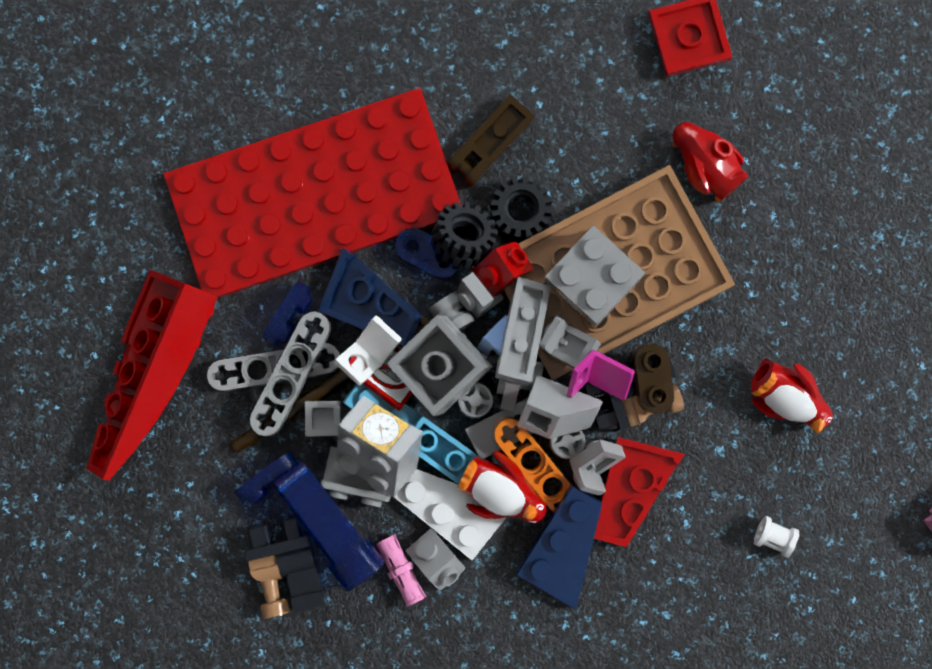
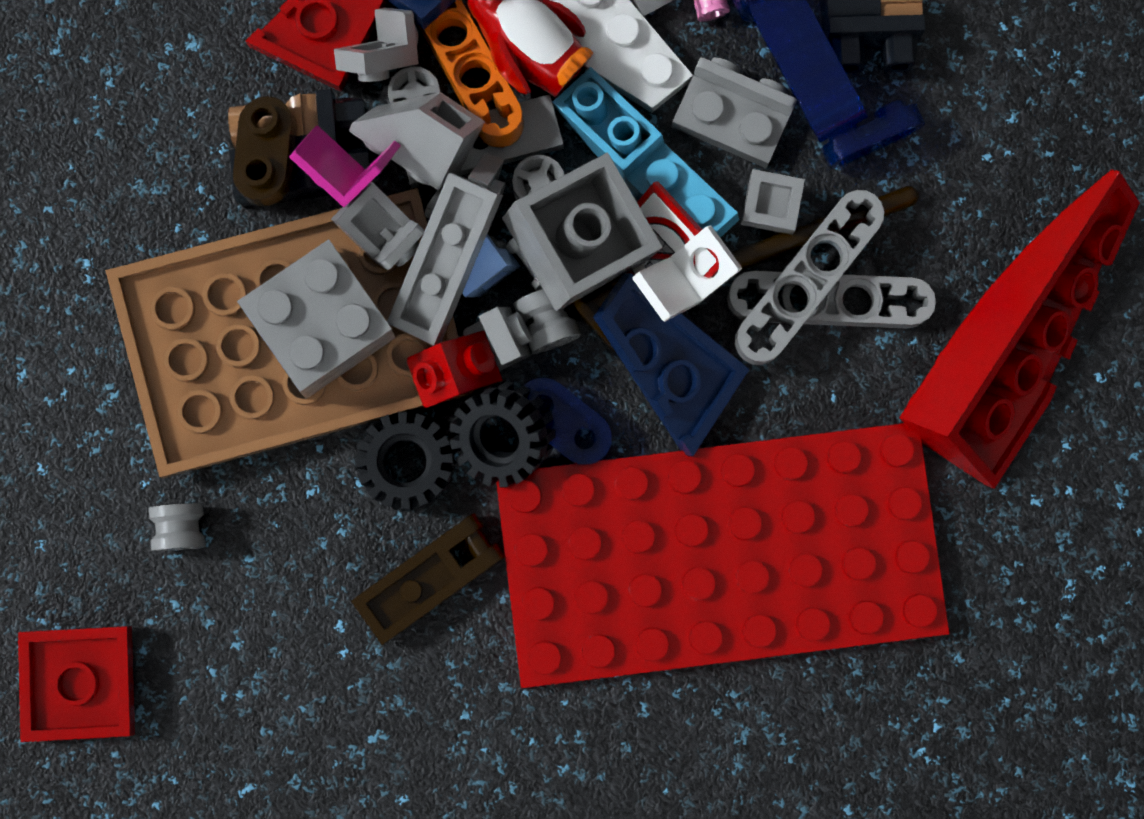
camera: 170 degrees left, 0 degrees up
(281, 325) = (809, 356): clear blue plate -> none
(378, 446) = (700, 131): light grey brick -> none
(652, 139) = (177, 527): none -> light grey wheel
(709, 160) = (96, 471): red animal -> none
(789, 395) = (67, 92): animal -> none

